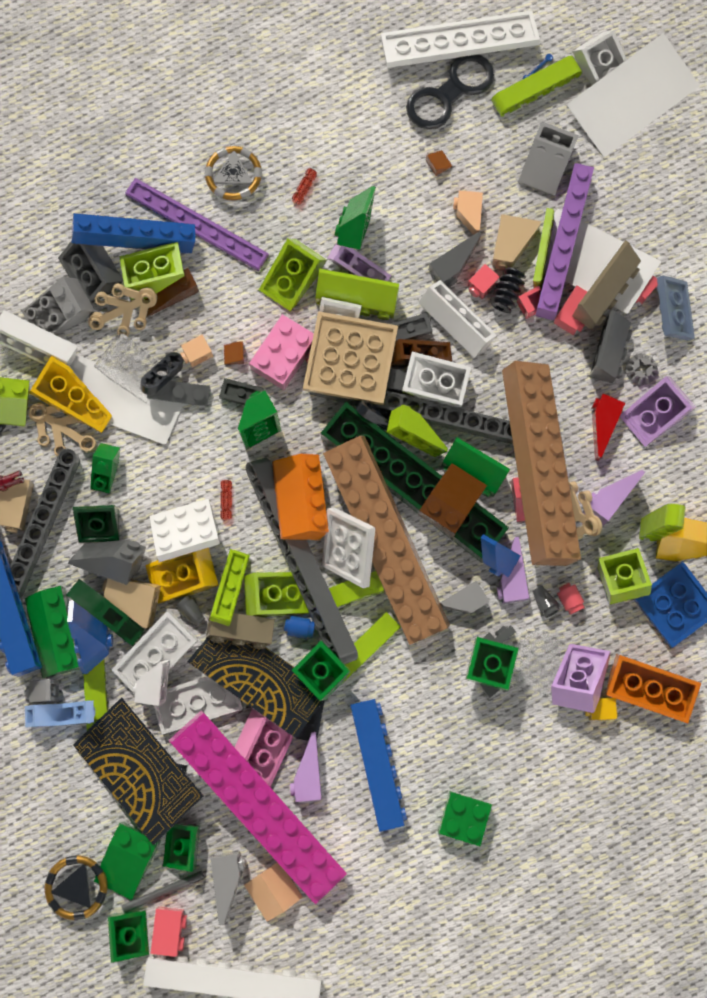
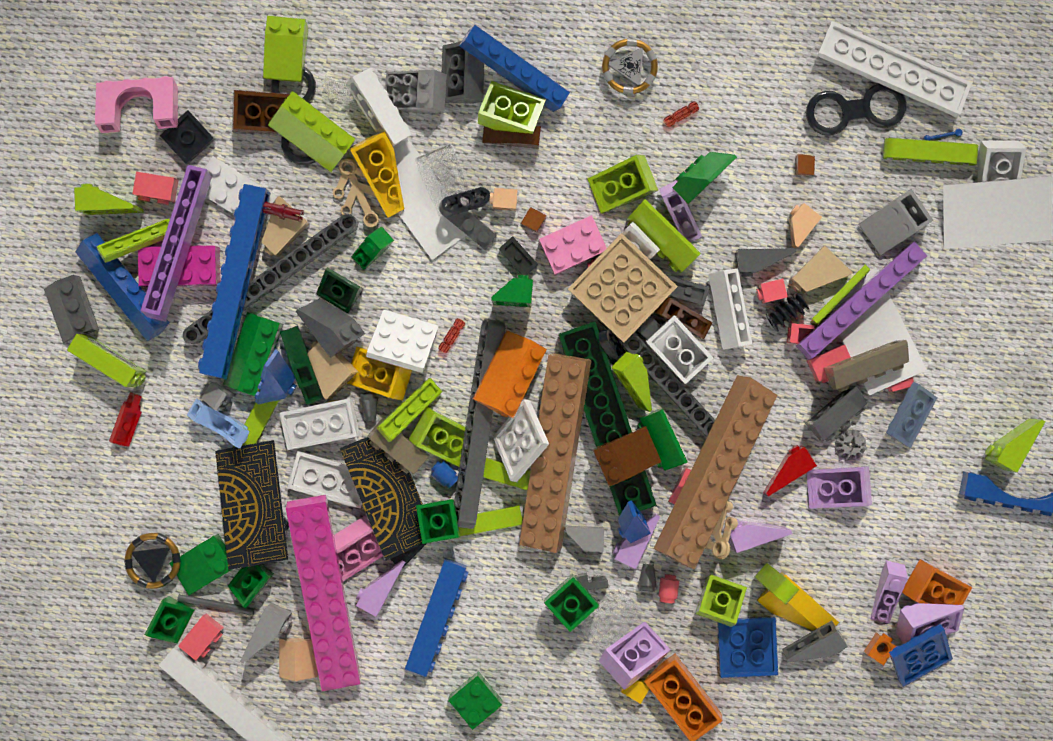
camera: 30 degrees right, 10 degrees up
(123, 307) = (489, 131): tan plant -> none
(153, 685) = (302, 448): white slope -> none
(204, 227) = (577, 98): medium lavender tile -> none

